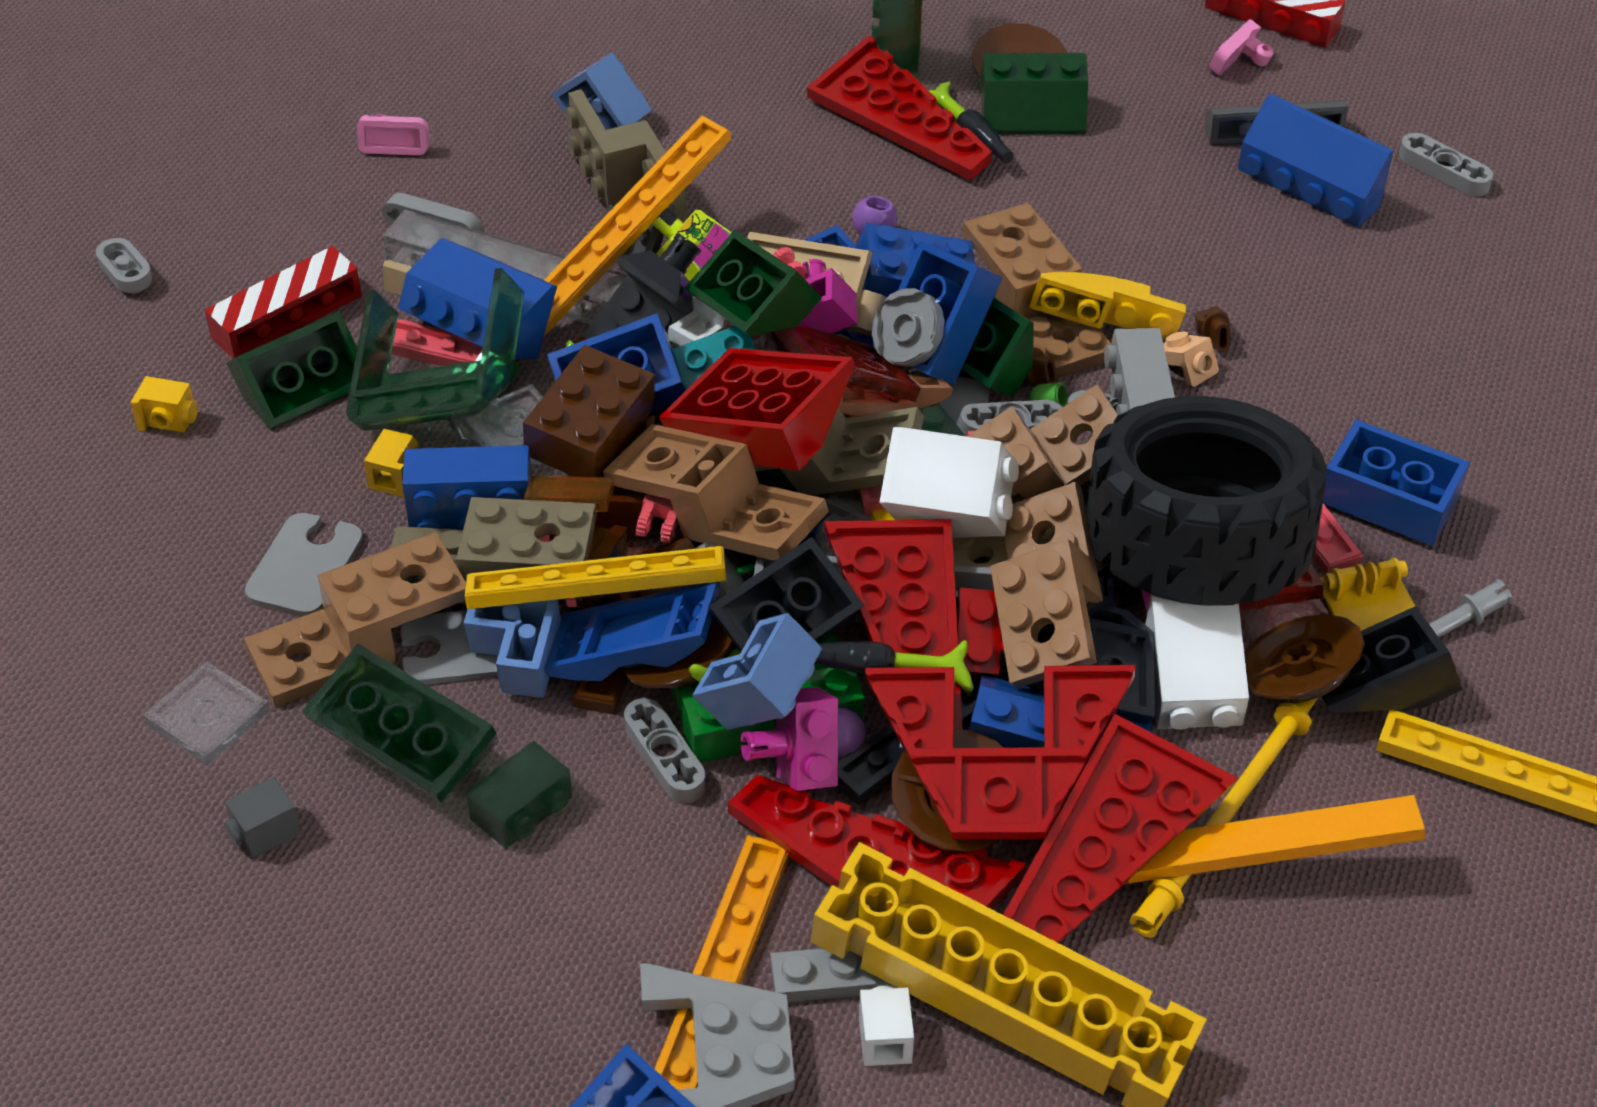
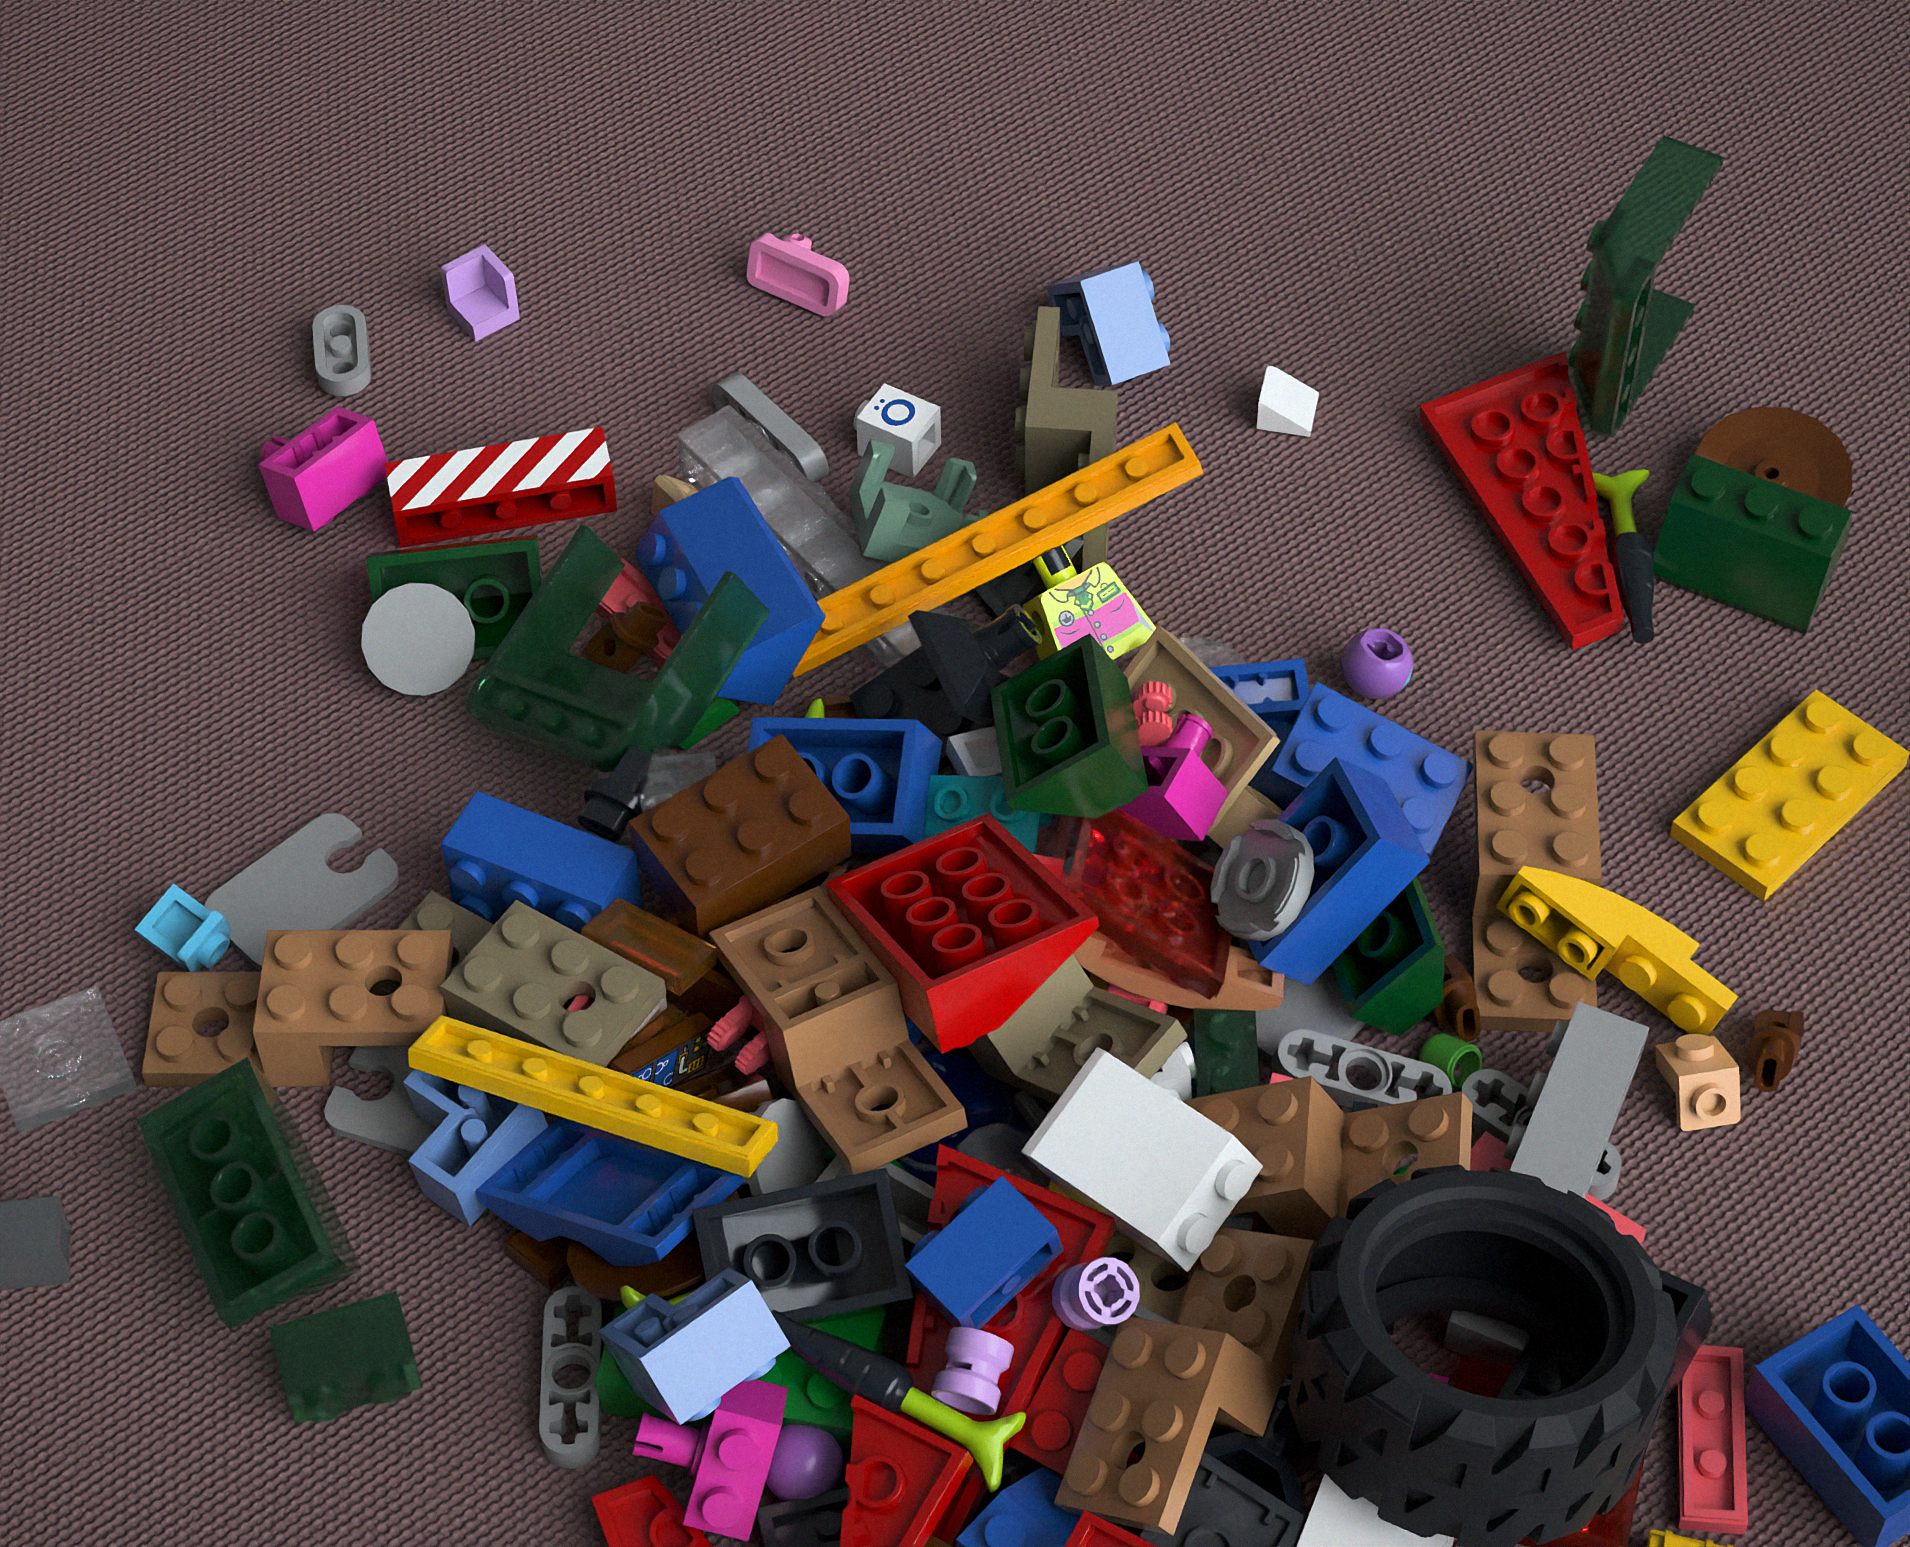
camera: 30 degrees right, 5 degrees up
(160, 327) = (323, 468): none -> dark pink brick
(164, 405) = (262, 584): yellow brick -> none
(196, 205) = (480, 292): none -> lavender panel
(247, 608) = (185, 931): none -> medium azure bracket
(291, 397) = (418, 639): none -> light grey tile
(386, 462) = (494, 772): yellow brick -> none
(424, 349) = (626, 635): none -> reddish brown piece
(496, 425) = (616, 799): none -> black piece
(511, 194) = (902, 421): none -> white brick
(556, 231) = (902, 519): none -> sand green panel
(727, 112) = (1286, 404): none -> white slope
(894, 564) = (983, 1255): none -> blue brick
(924, 627) = (972, 1371): none -> lavender wheel
(970, 559) = (1080, 1297): none -> lavender wheel
(1133, 209) = (1789, 794): none -> yellow plate

